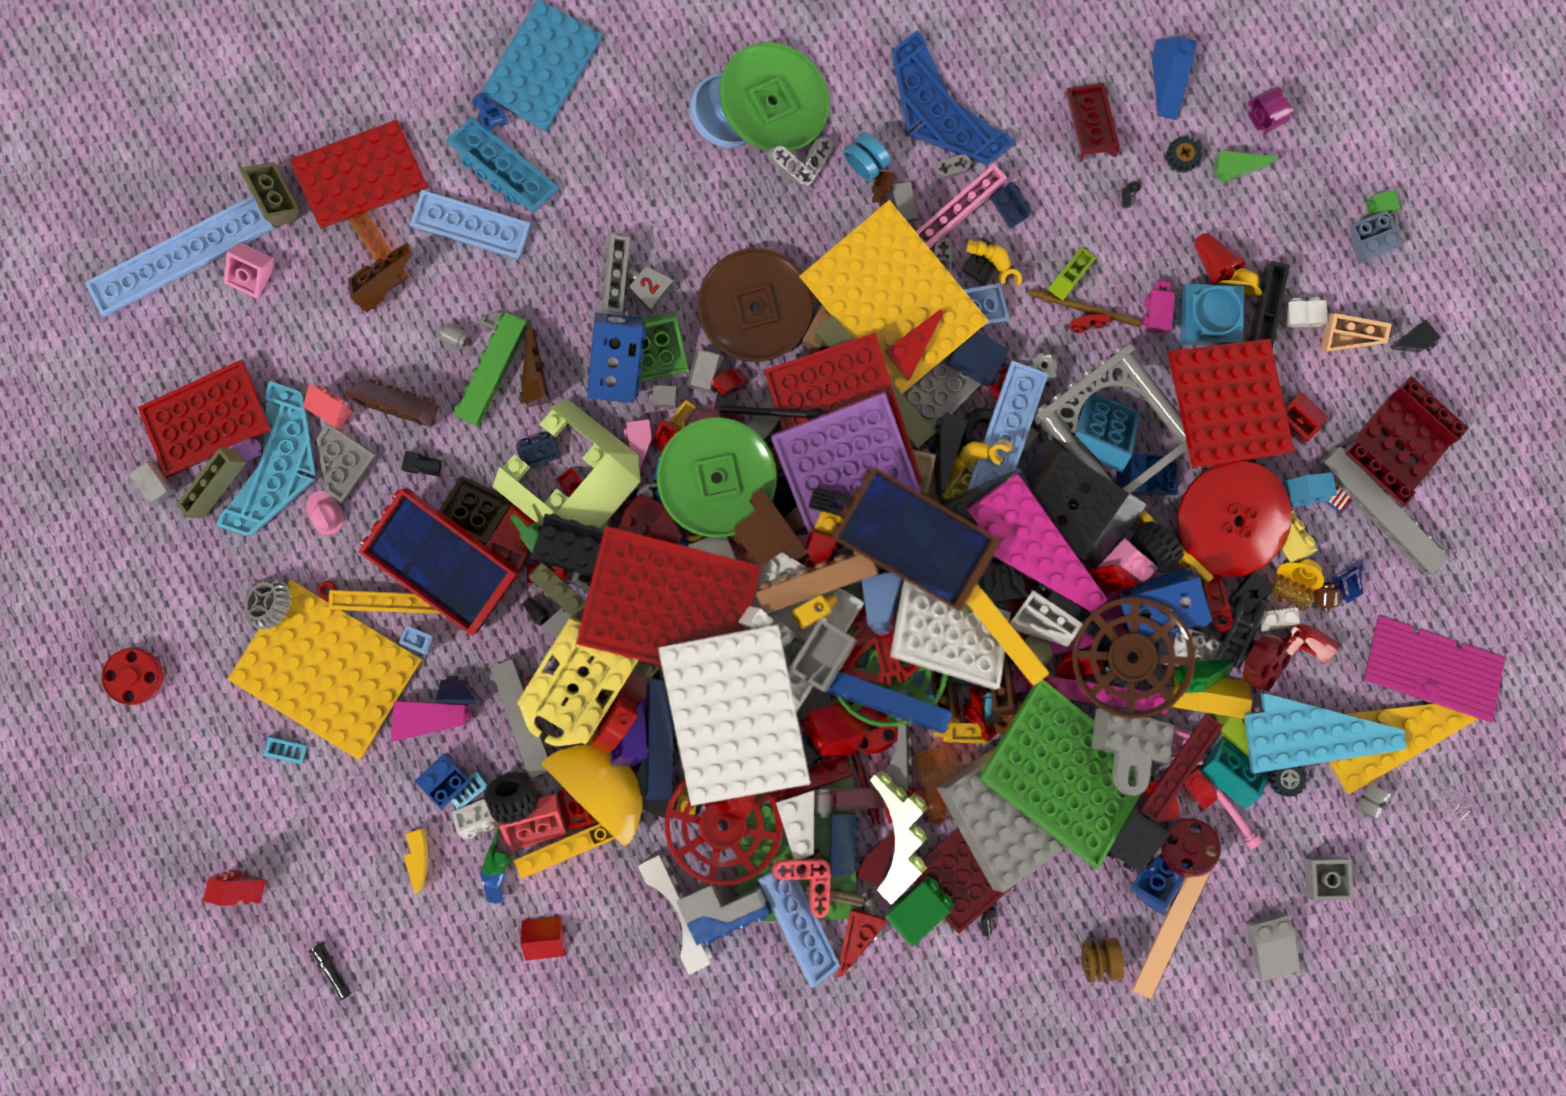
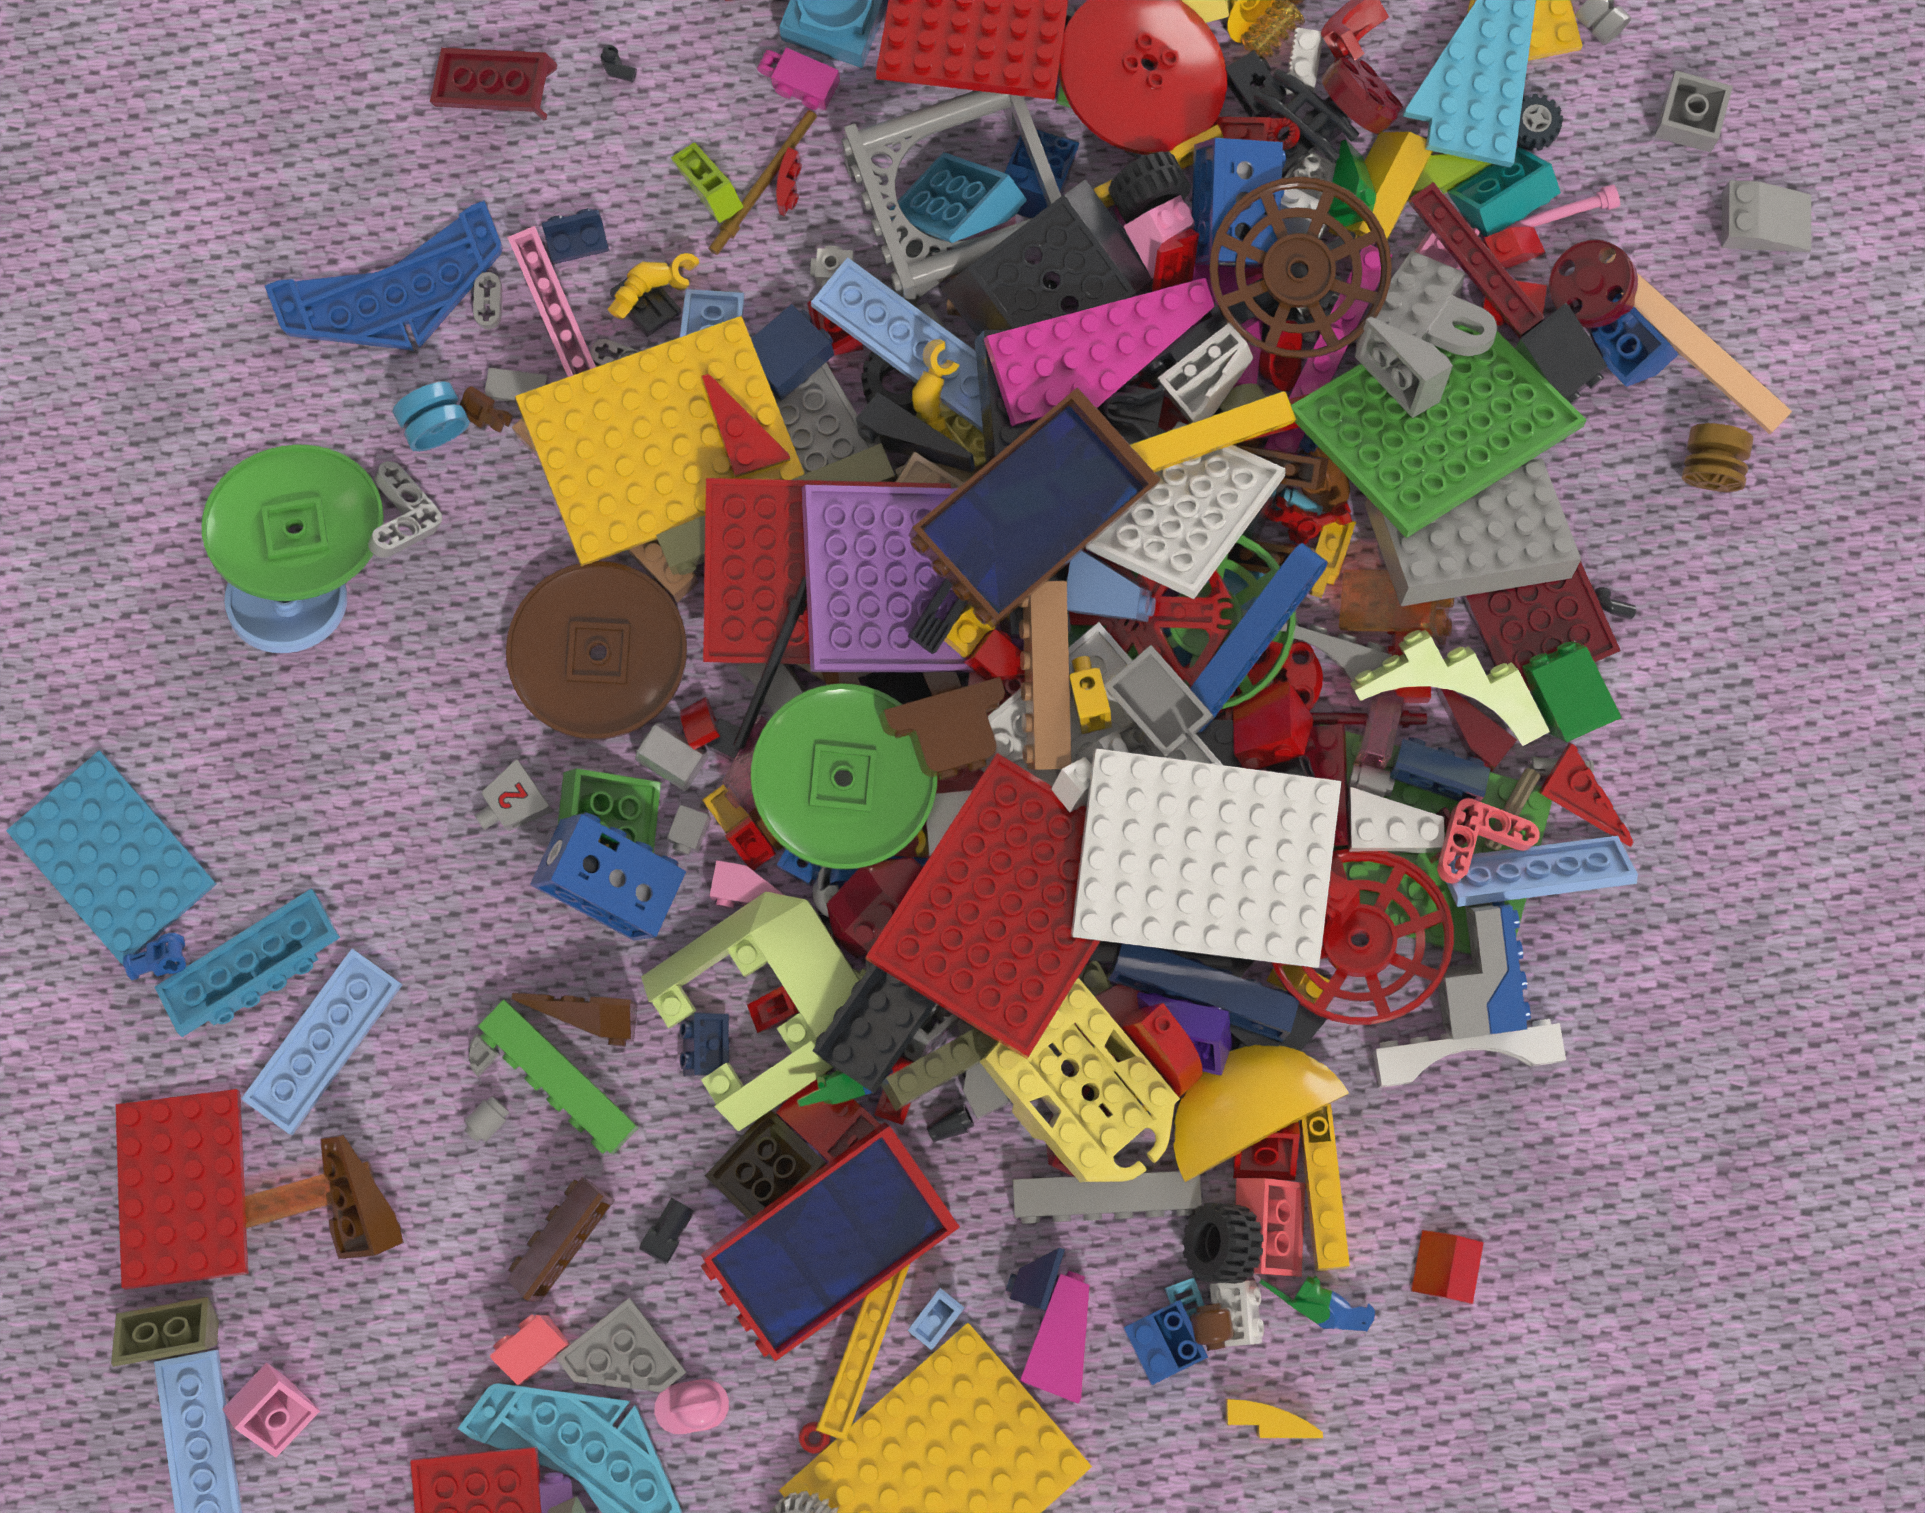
camera: 65 degrees left, 5 degrees down
(460, 806) = (1212, 1326): none -> reddish brown head
(614, 274) = (477, 845): light grey brick -> none
(1092, 743) = (1404, 365): none -> light grey slope

